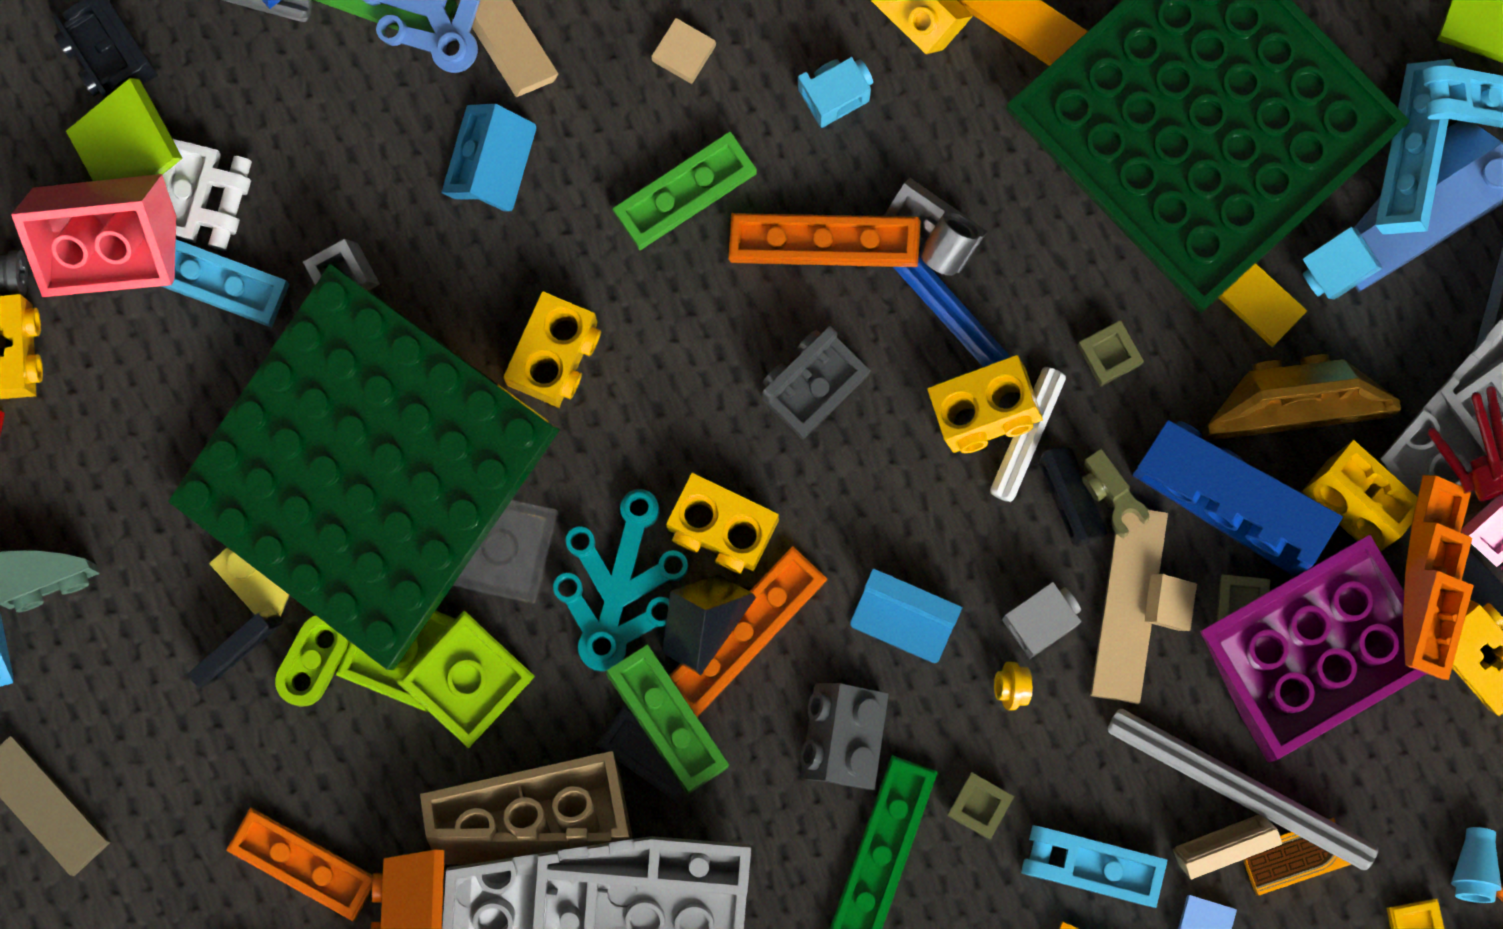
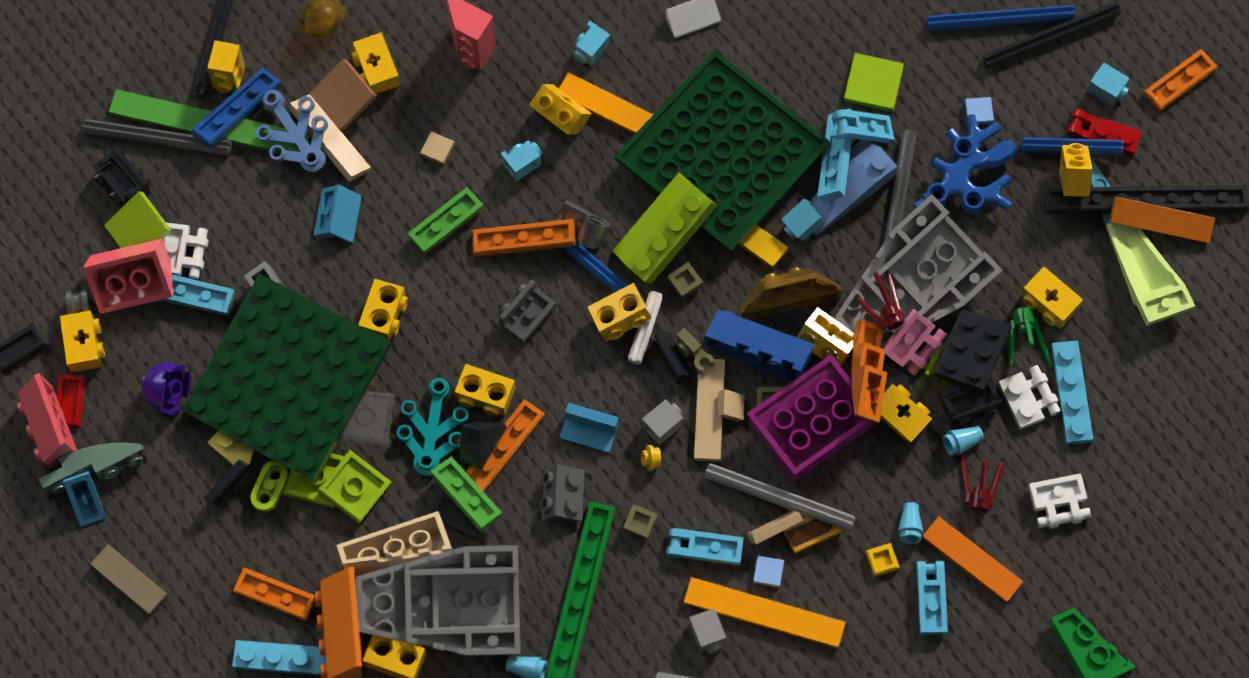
camera: 10 degrees left, 10 degrees down
(141, 452) = (165, 386): none -> dark purple cylinder
(1084, 253) = (664, 228): none -> lime slope

